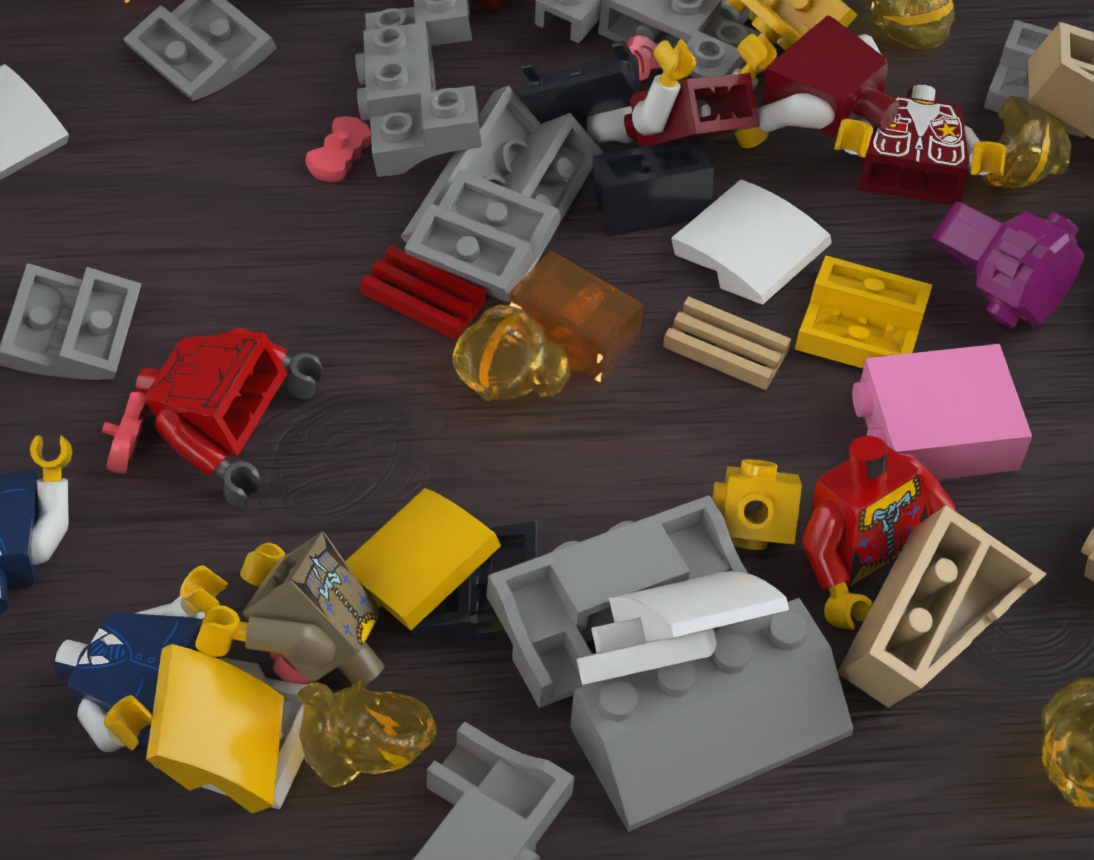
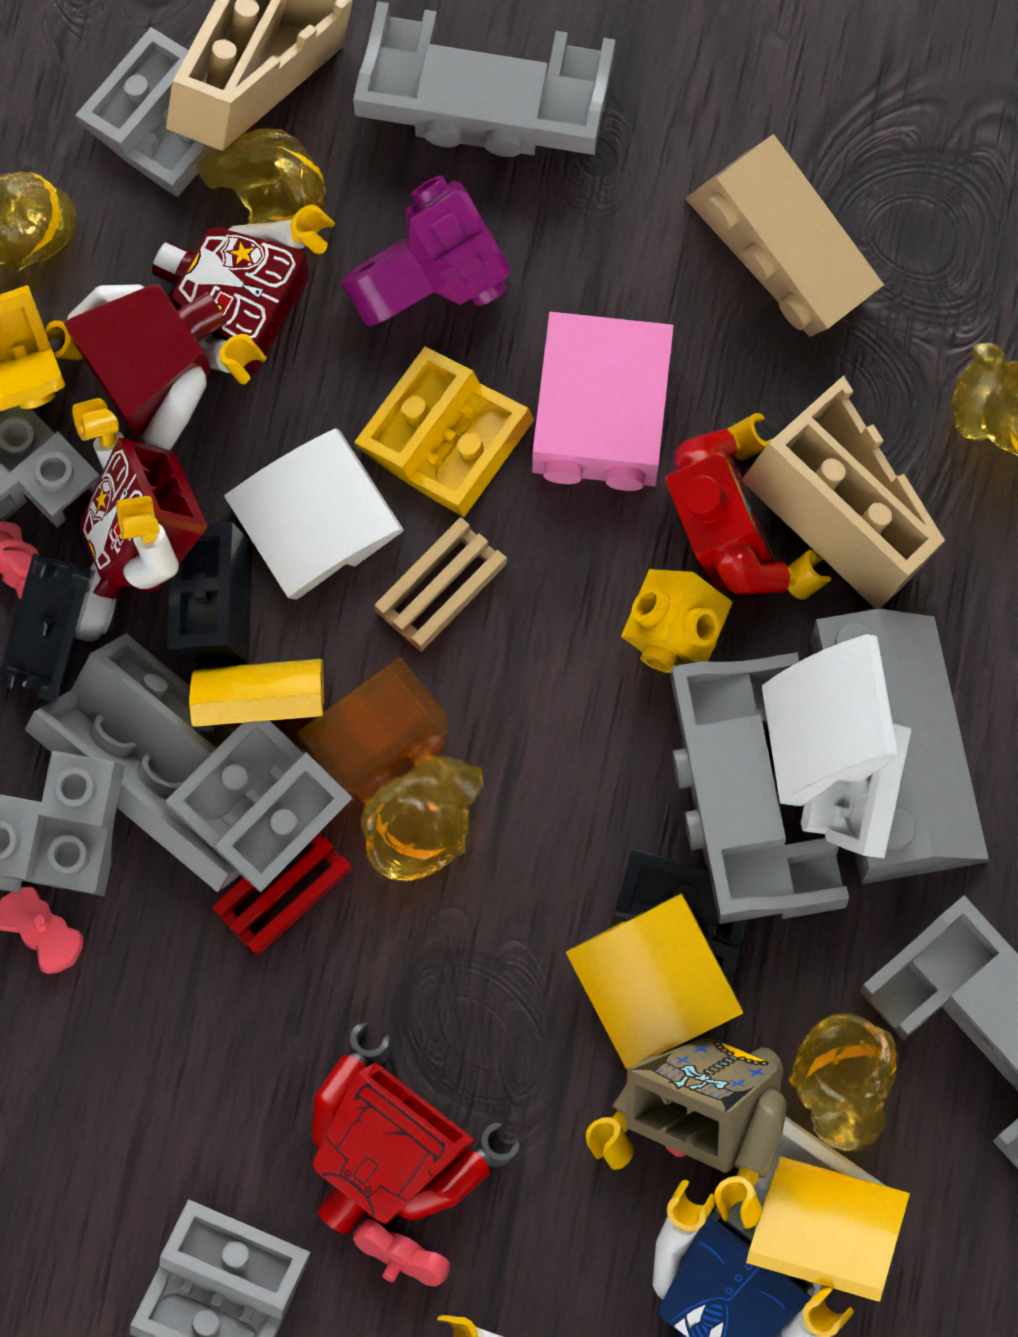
camera: 70 degrees left, 20 degrees up
(576, 217) = (257, 692): none -> yellow slope

